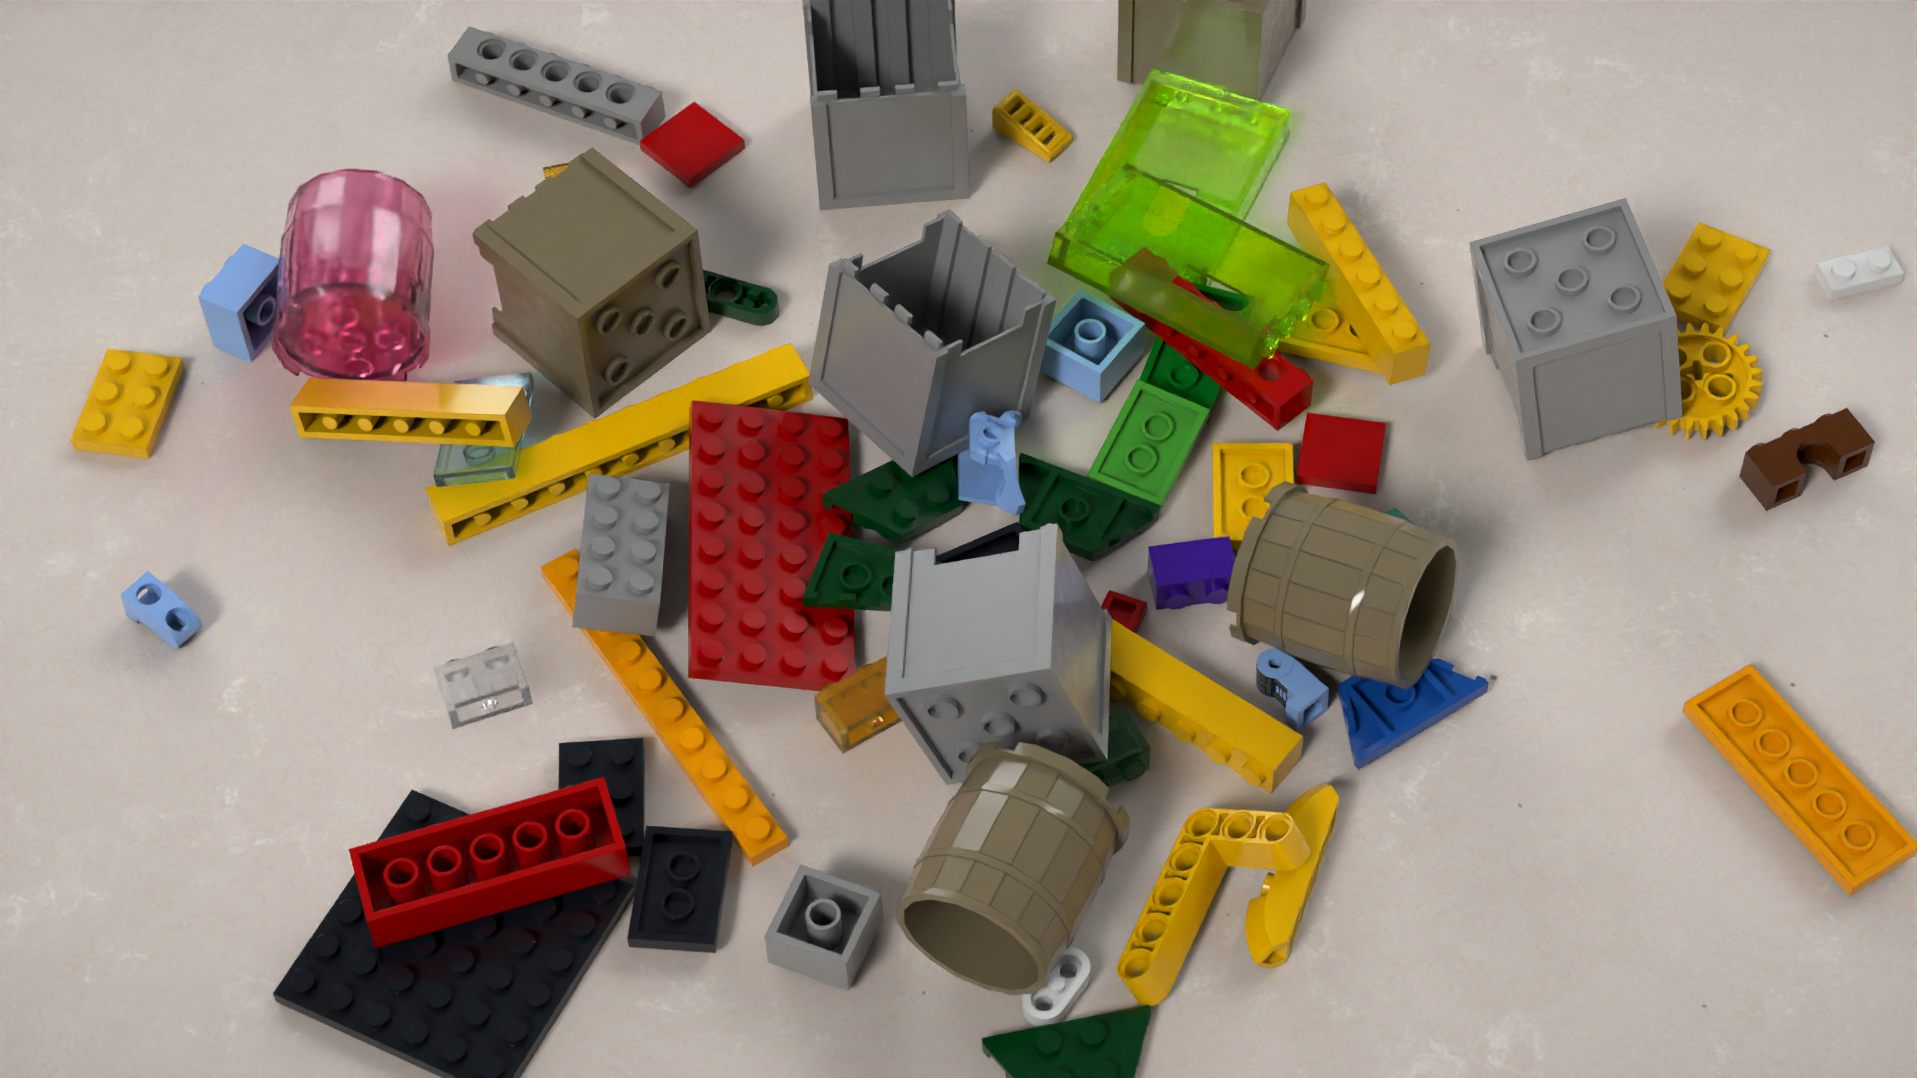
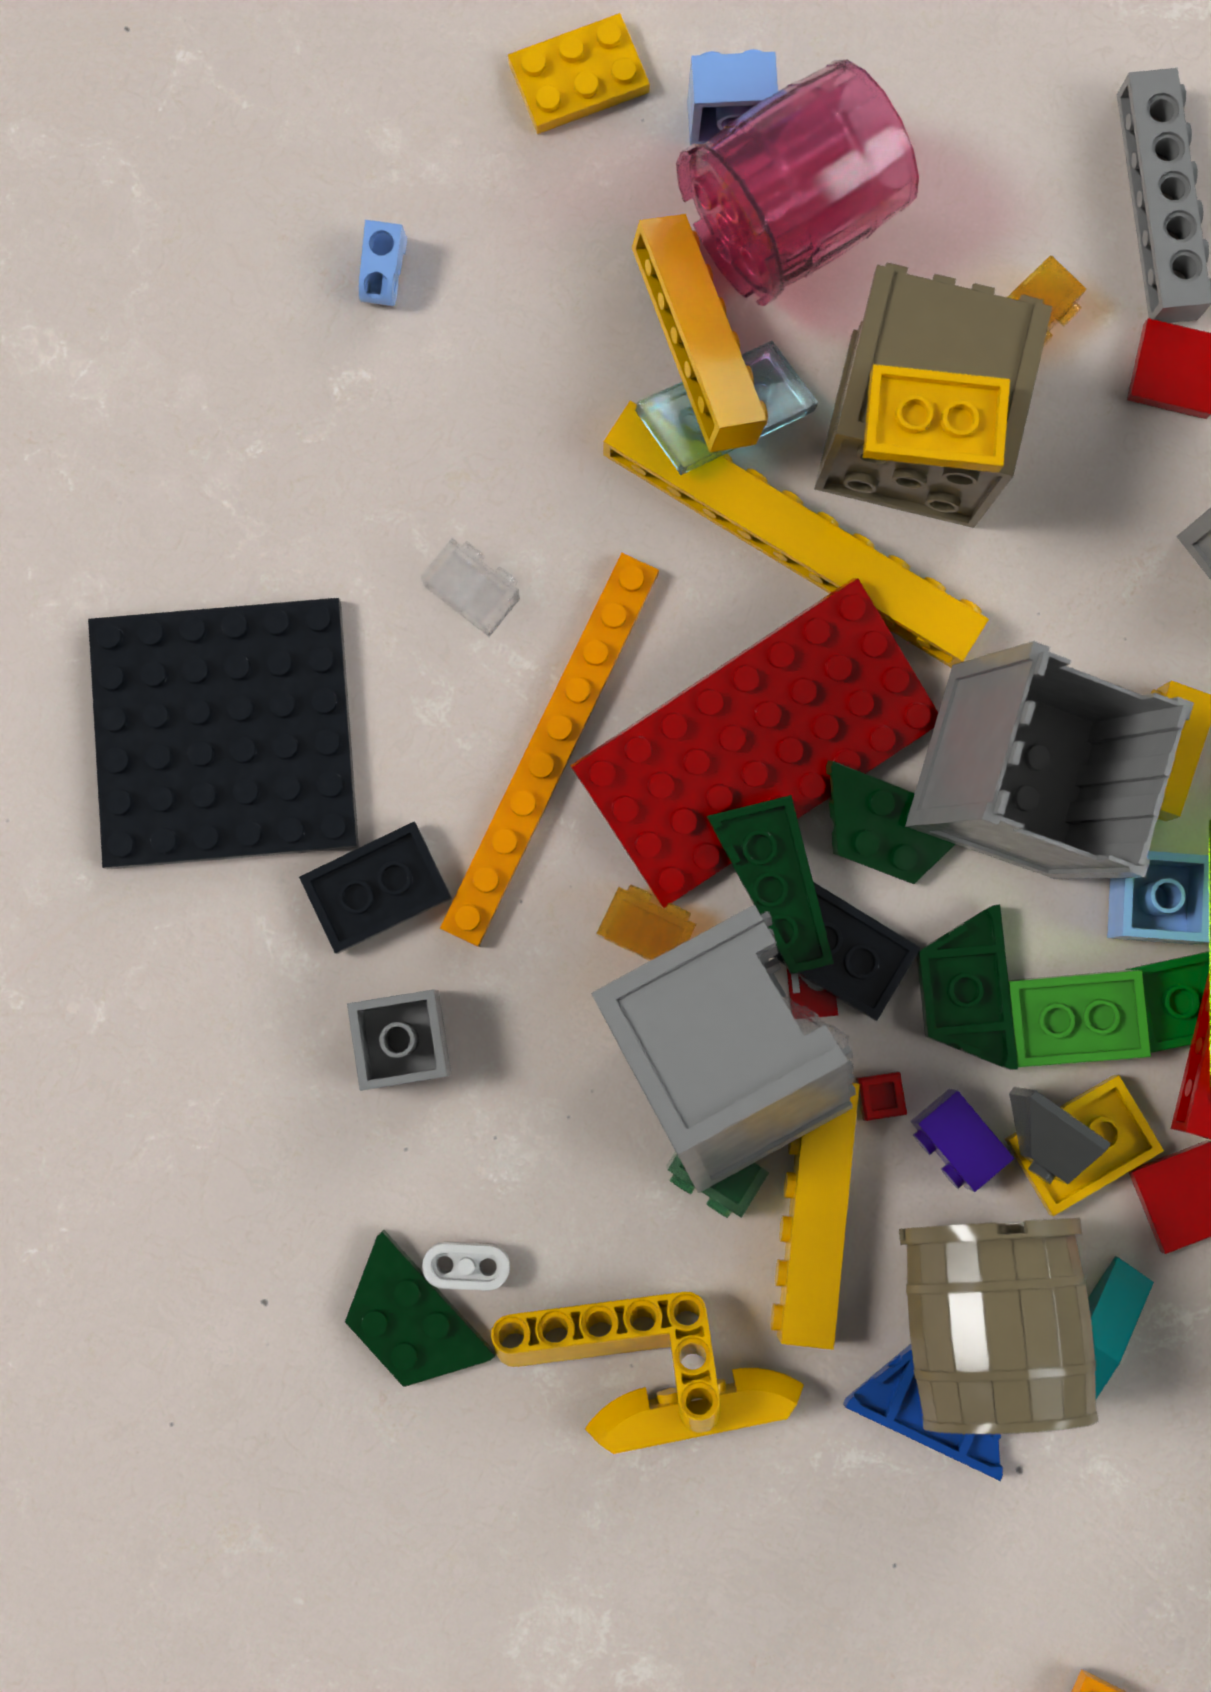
camera: 55 degrees right, 30 degrees up
(489, 862) = (282, 722): red brick -> none
(617, 248) = (936, 418): none -> yellow plate
(621, 555) = (664, 620): light grey brick -> none
(624, 772) = (427, 760): black plate -> none
(740, 308) = (1035, 544): dark green beam -> none
(989, 464) = (965, 886): light blue piece -> none
(1012, 868) = (518, 1187): dark tan piece -> none
(1221, 490) = (1052, 1138): none -> dark grey slope
(1292, 686) = (889, 1306): light blue leg -> none

